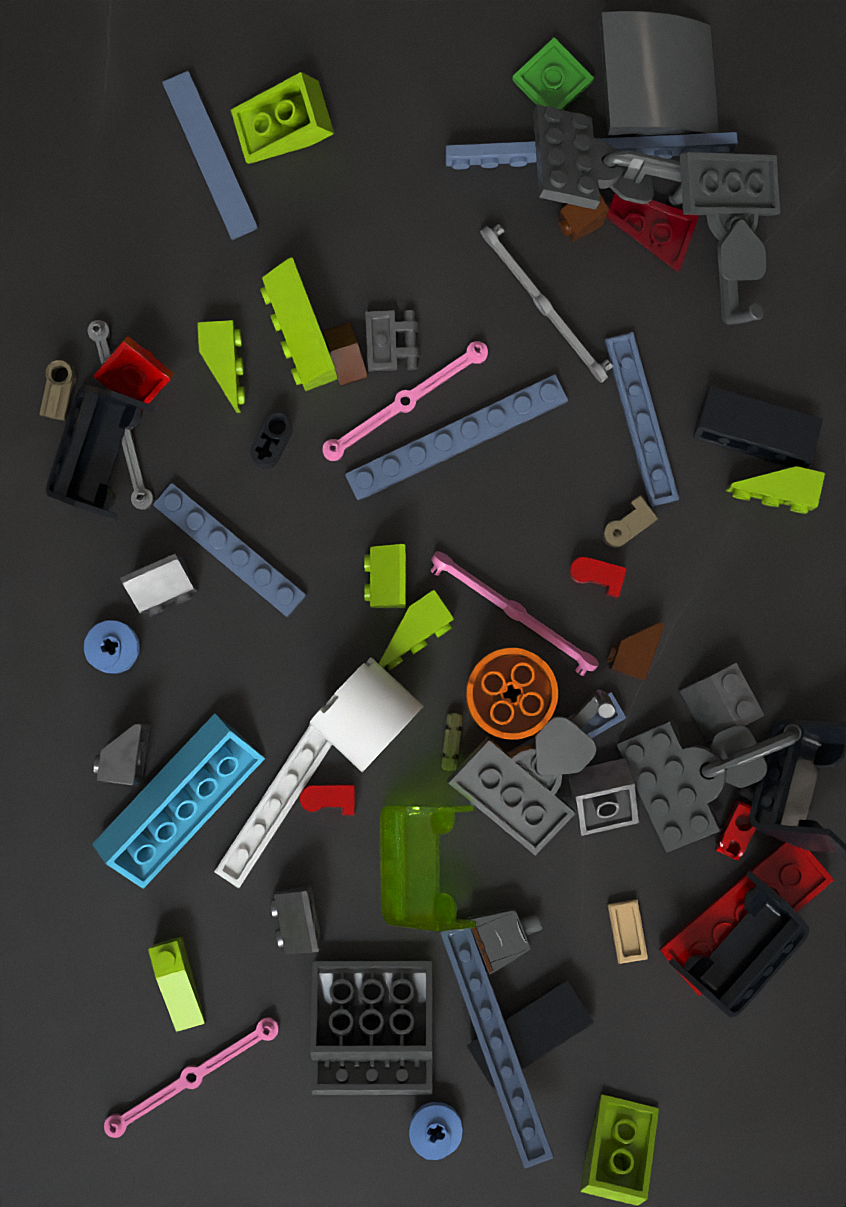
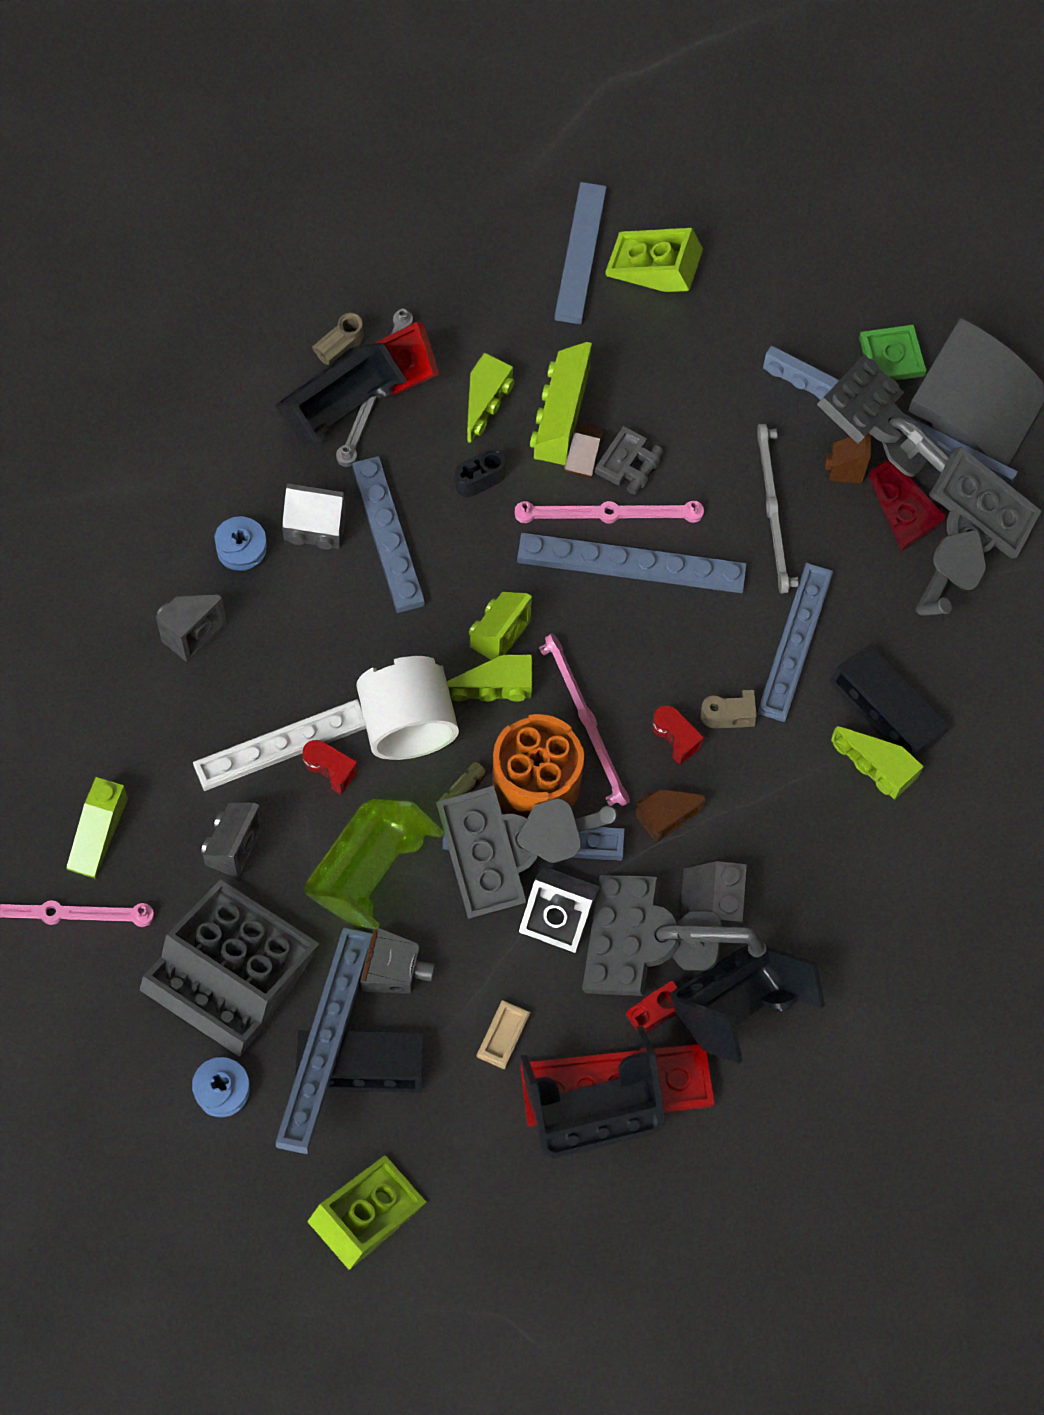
camera: 30 degrees right, 20 degrees down
(177, 802) = (205, 690): medium azure slope -> none

